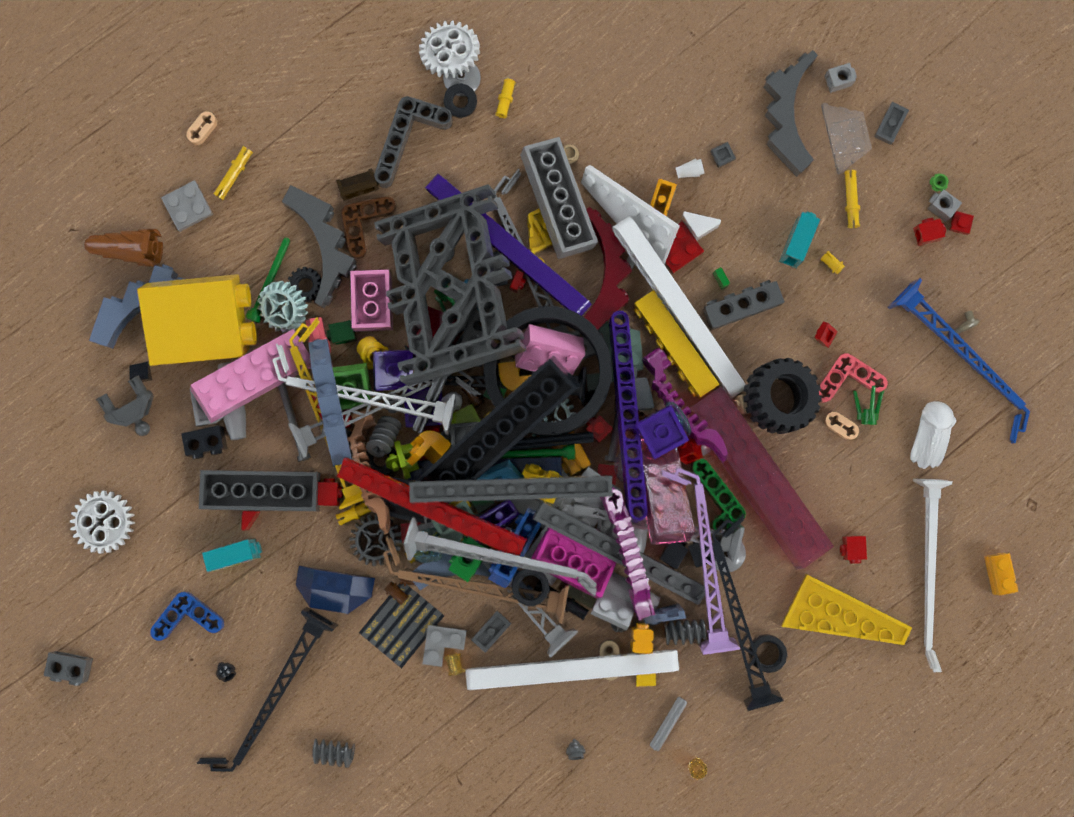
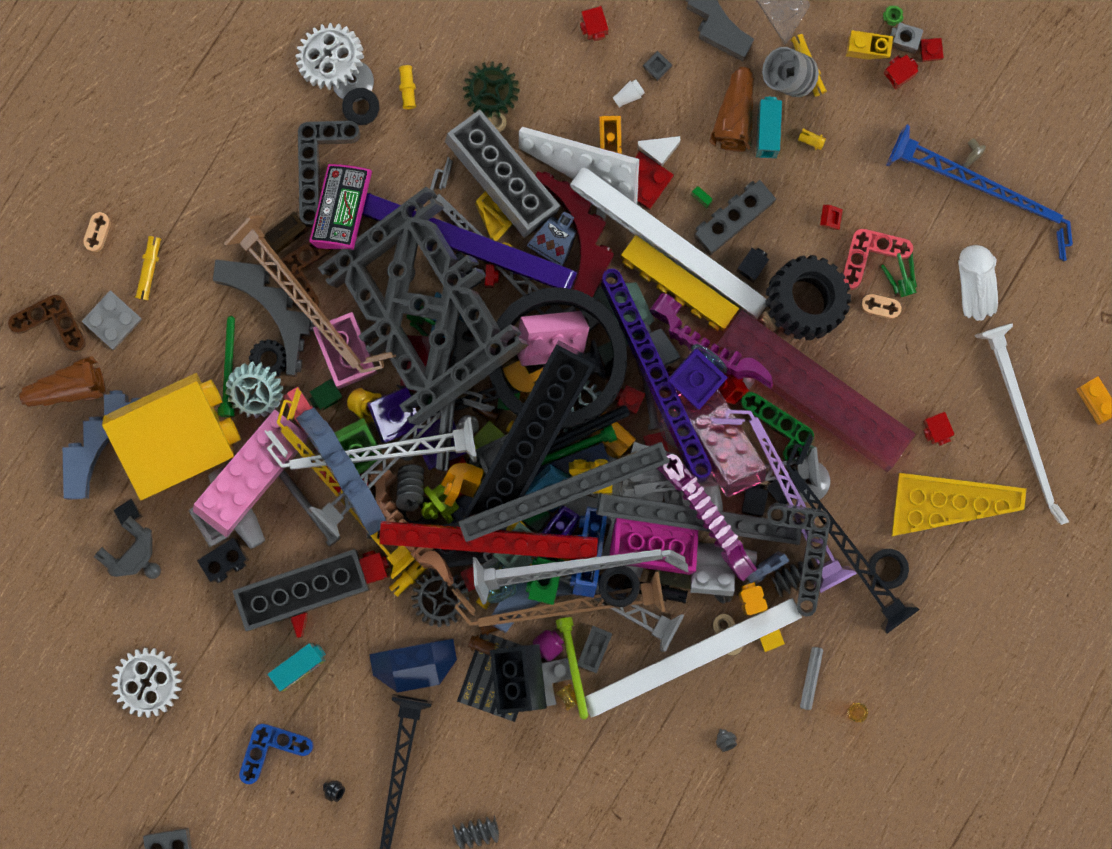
camera: 20 degrees left, 0 degrees up
(142, 186) = (56, 315): none -> reddish brown beam
(326, 174) = (249, 236): none -> medium nougat piece
(411, 178) = (340, 207): none -> slope
(416, 634) = (518, 679): none -> black brick
(452, 613) = (550, 644): none -> magenta head
(472, 602) = (565, 626): none -> lime piece
(567, 127) = (498, 84): none -> clear green gear
(583, 269) = (555, 239): none -> sand blue torso
(682, 100) = (594, 24): none -> red brick
(706, 617) = (810, 551): none -> dark grey beam
(744, 351) = (753, 264): none -> black brick
(773, 221) = (734, 117): none -> dark orange cone
(835, 198) = (790, 72): none -> light grey wheel
(909, 200) = (869, 45): none -> yellow slope

